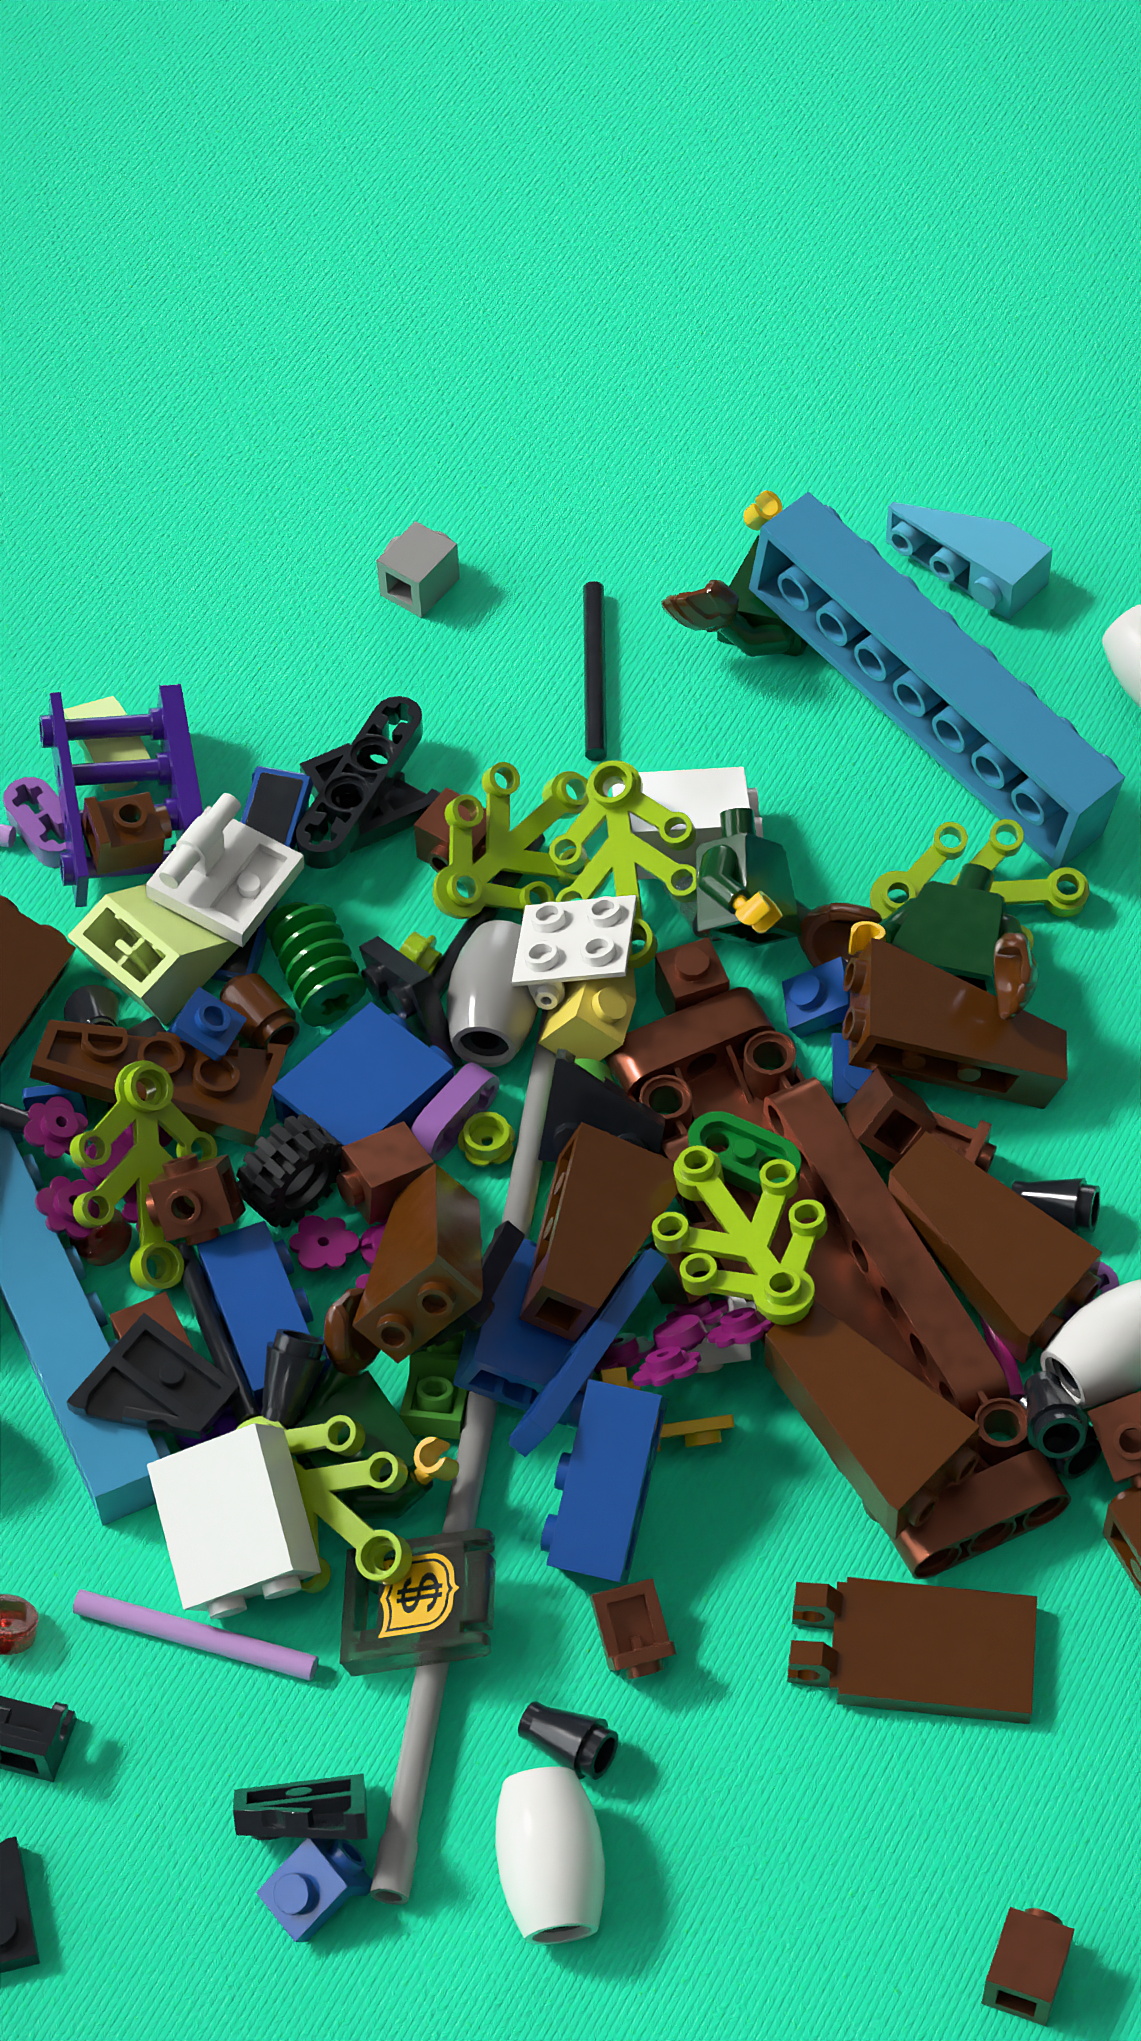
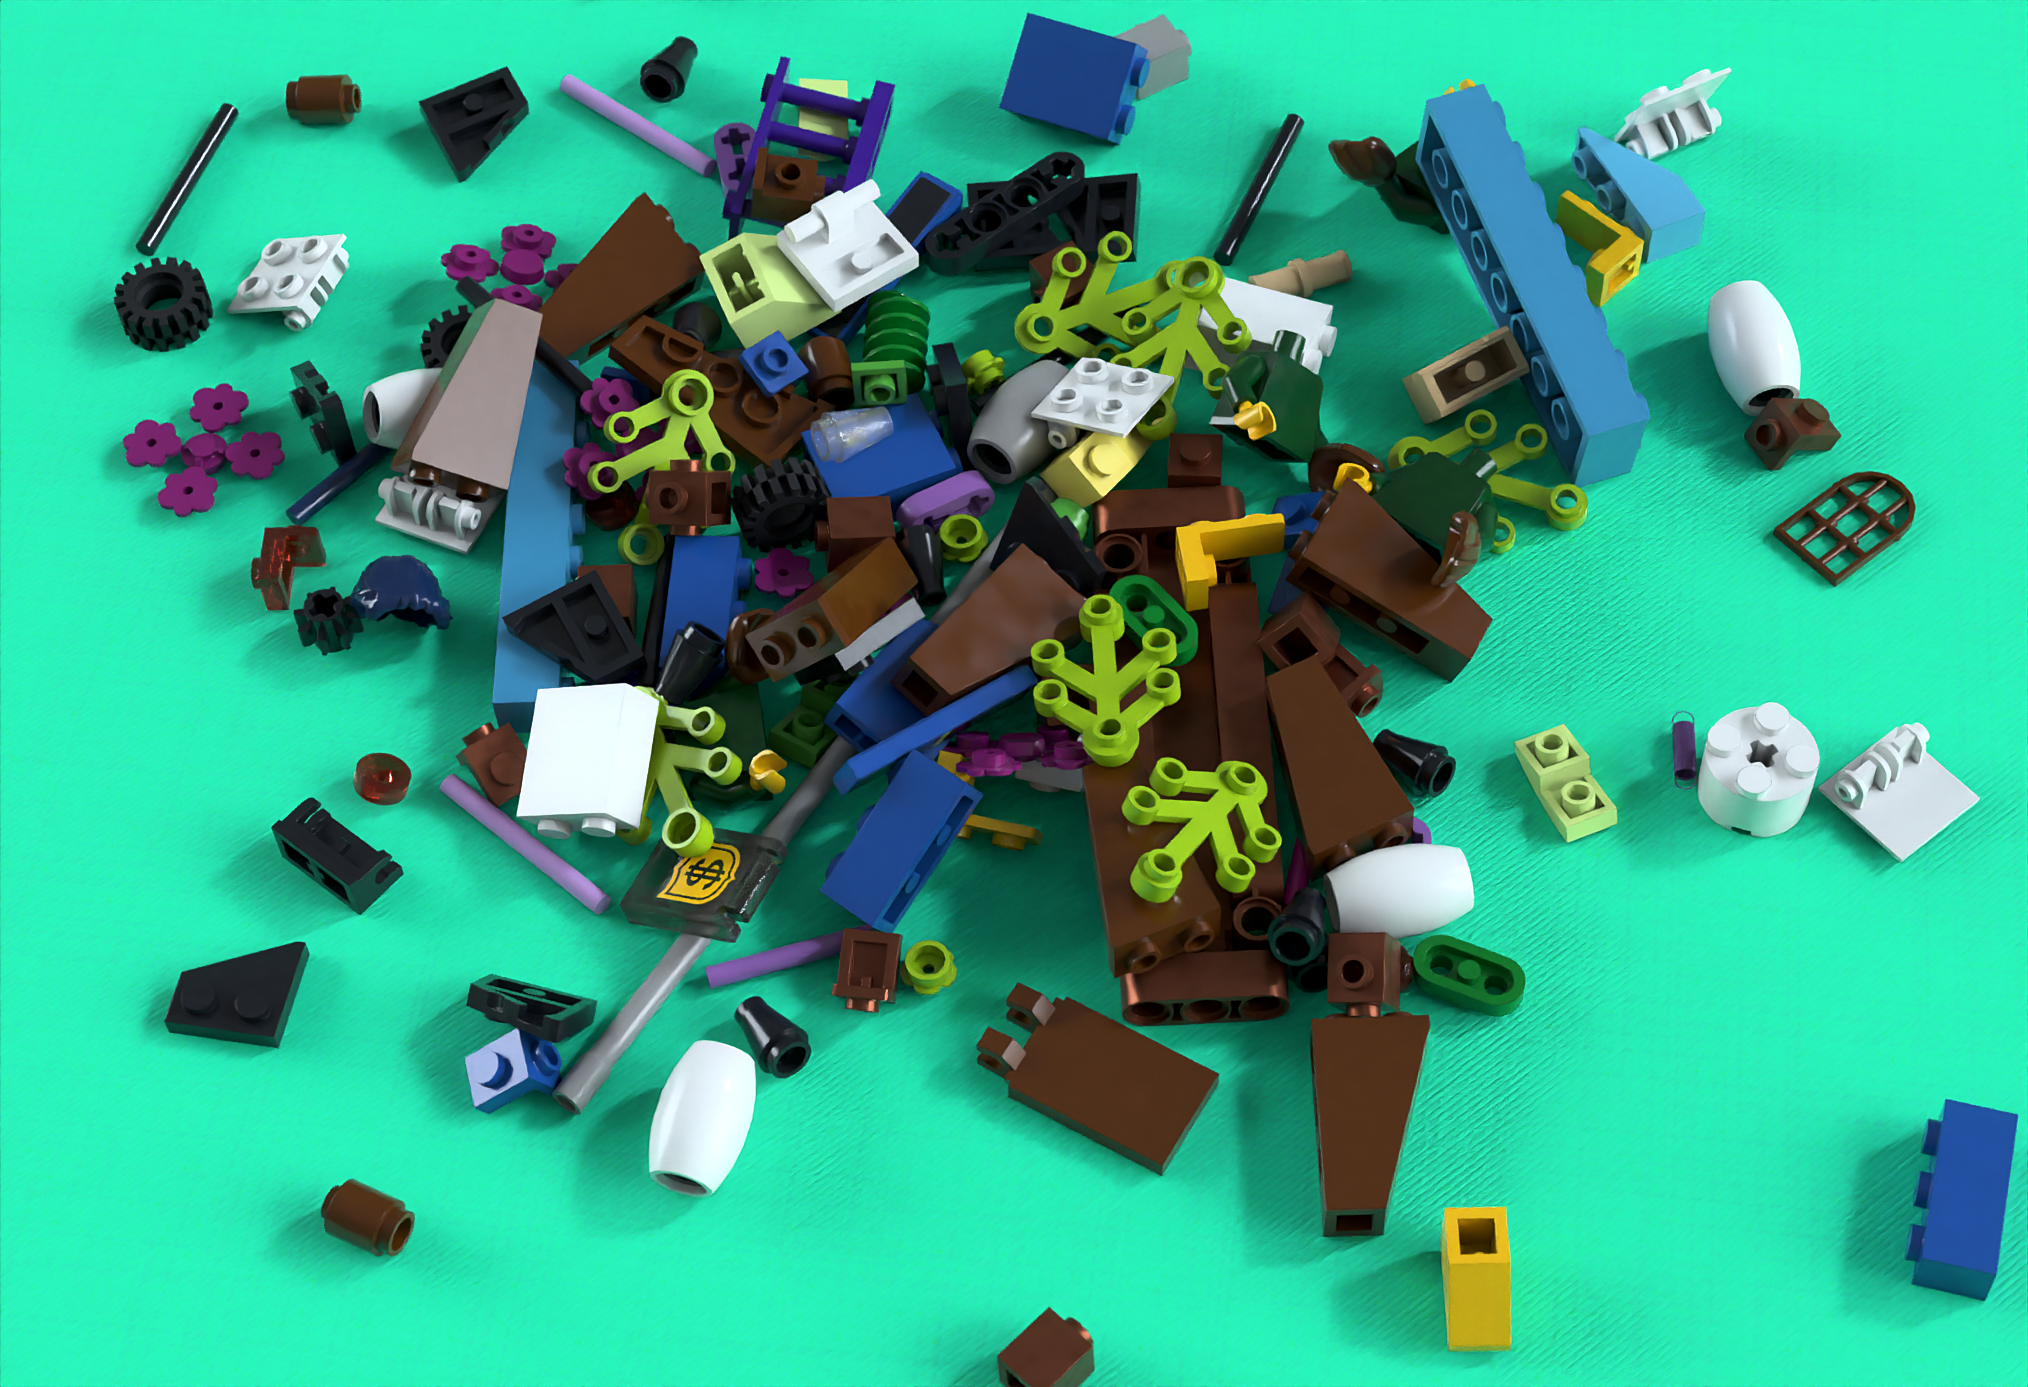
camera: 25 degrees right, 0 degrees up
(123, 1558) = (495, 761): none -> copper bracket
(328, 1070) = (848, 432): none -> clear cone
(331, 1010) = (879, 383): none -> bright green slope
(361, 617) = (1075, 79): none -> blue brick
(455, 750) = (1104, 207): none -> black wing
(463, 1166) = (924, 556): none -> black cone
(531, 1651) = (777, 959): none -> medium lavender bar
(689, 746) = (1304, 277): none -> tan pin
(693, 1587) = (925, 955): none -> lime plate
(754, 1057) = (1208, 542): none -> yellow bracket
(908, 792) = (1466, 375): none -> tan brick
(919, 1299) = (1236, 790): none -> lime plant
(967, 465) = (1673, 116): none -> white hinge
(975, 611) = (1613, 246): none -> yellow bracket

